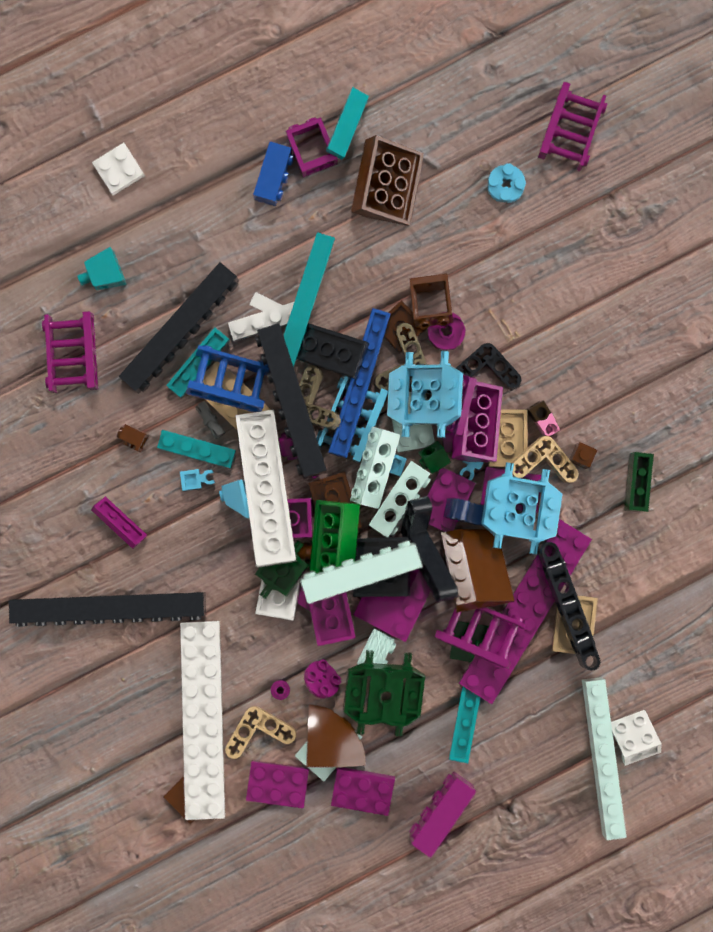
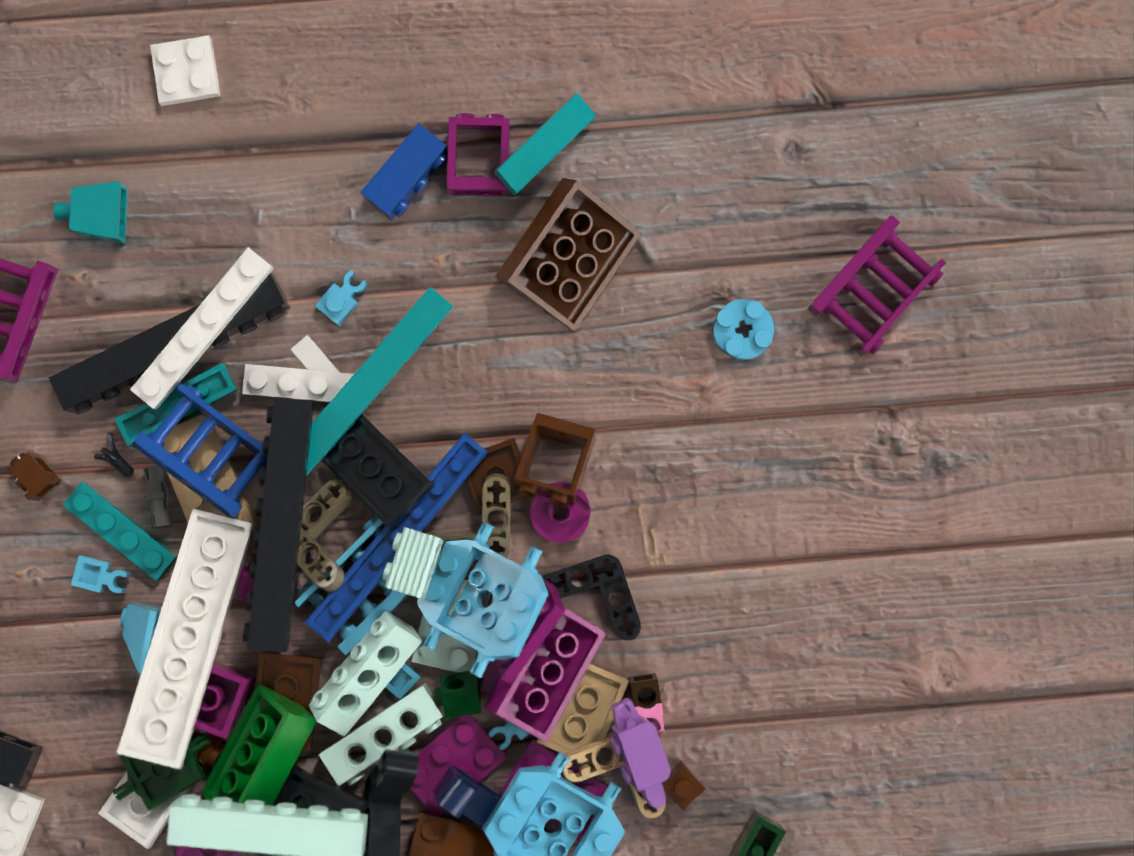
camera: 25 degrees right, 0 degrees up
(173, 408) = (113, 457): none -> black bar
(196, 310) = (202, 328): none -> white plate
(266, 264) = (338, 302): none -> medium azure plate
(377, 391) = (412, 563): none -> light aqua brick
(552, 444) = (641, 752): none -> medium lavender hinge

